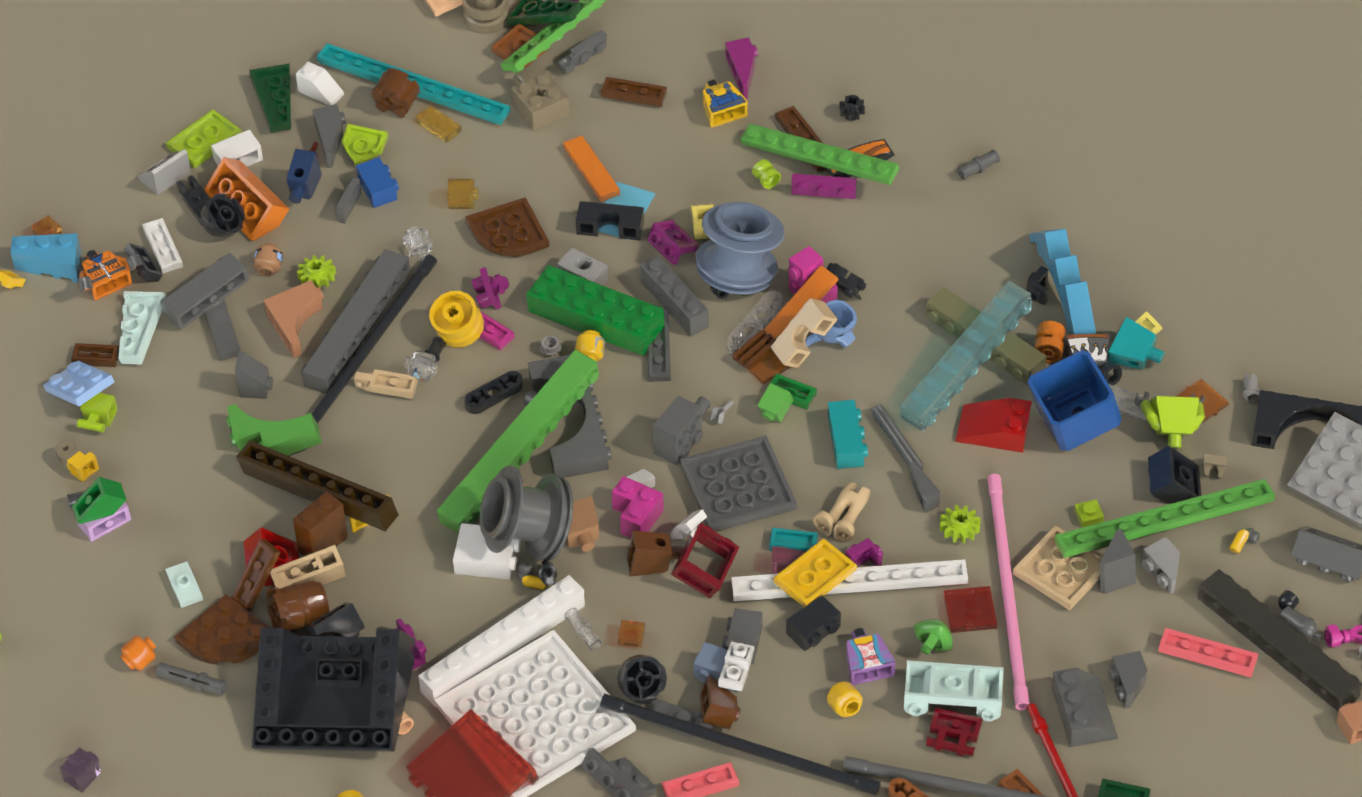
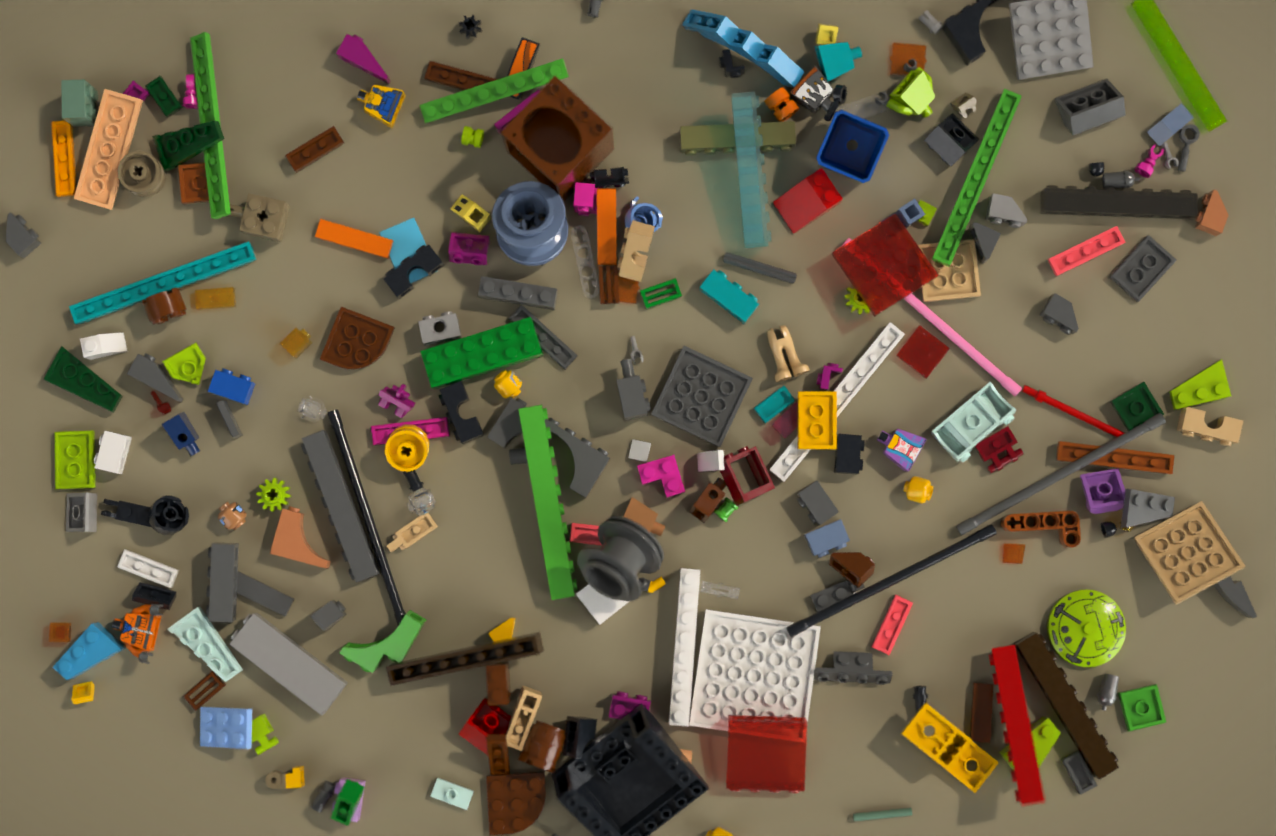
camera: 45 degrees left, 35 degrees up
(180, 387) = (288, 663): none -> light grey brick
(261, 206) = (150, 480): orange slope -> none
(498, 384) = (477, 467): black beam -> none
(534, 323) = (453, 397): none -> black arch
(547, 572) = (664, 576): black axle -> none
(550, 345) = (475, 405): light grey plate -> none
(583, 51) = (247, 150): dark grey hinge -> none
(631, 633) = (750, 565): clear orange plate -> none
(641, 678) = (793, 594): black cylinder -> none
(659, 577) = (725, 509): none -> bright green bush
(736, 666) = (843, 535): white slope -> none
(775, 403) = (665, 316): bright green brick -> none
(829, 200) = (558, 138): none -> reddish brown container
(926, 491) = (815, 292): dark grey slope -> none
(933, 635) = (926, 393): bright green piece -> none
(1007, 509) = (885, 265): none -> clear red plate
(1063, 501) = (909, 213): none -> sand blue slope
(1082, 707) = (1054, 361): dark grey slope -> none
(1242, 537) = (1030, 139): yellow arm -> none
(1249, 710) = (1142, 268): none -> dark grey tile

